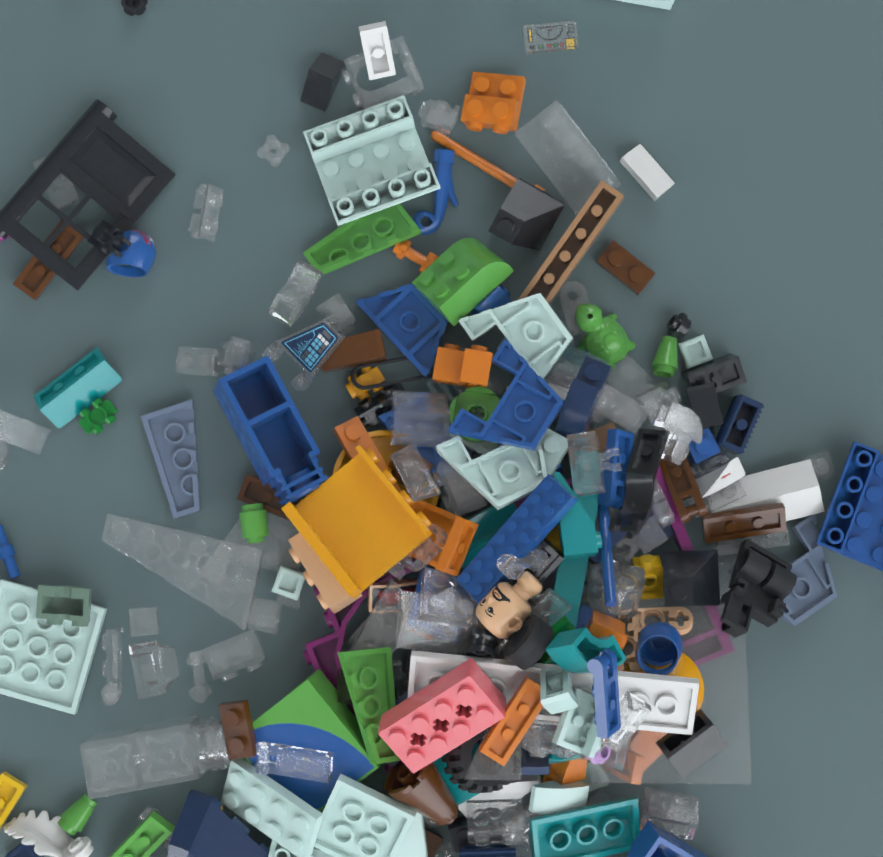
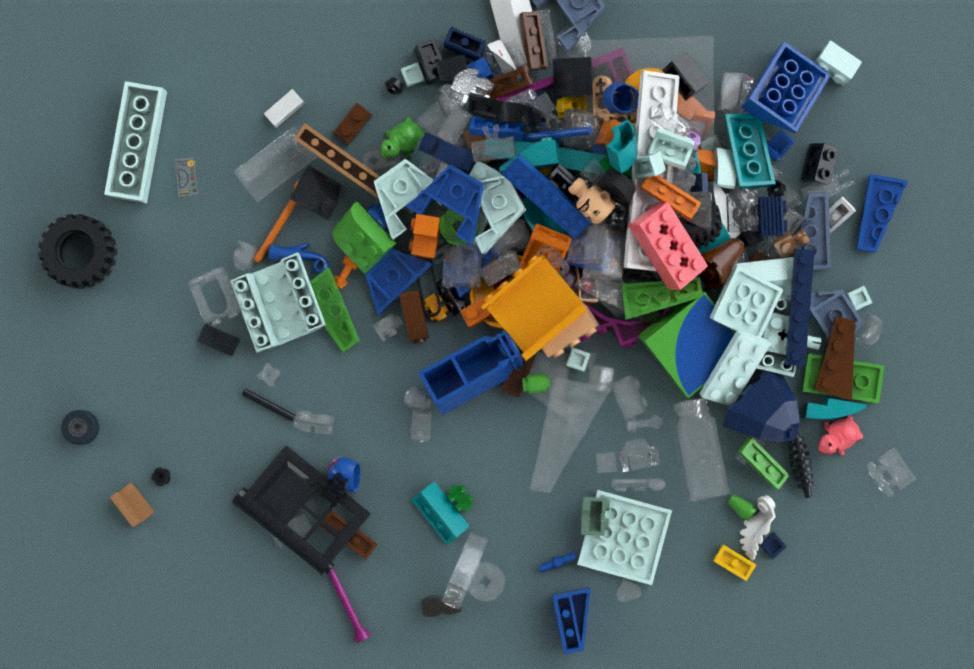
camera: 85 degrees left, 0 degrees up
(174, 448) = (484, 442): sand blue wing -> none
(232, 150) = (269, 405): none -> black bar
(238, 729) = (680, 391): reddish brown plate -> none
(294, 762) = (702, 351): clear plate -> none
(296, 294) = (372, 356): clear brick -> none
(308, 348) = (412, 347): flag -> none
(377, 50) = (199, 298): white slope -> none
(493, 102) = (234, 217): orange plate -> none
(514, 568) = (566, 196): clear bar -> none
(605, 693) = (650, 132): plate -> none
(665, 360) = (418, 95): bright green cone -> none
(756, 589) = (579, 31): black plate -> none

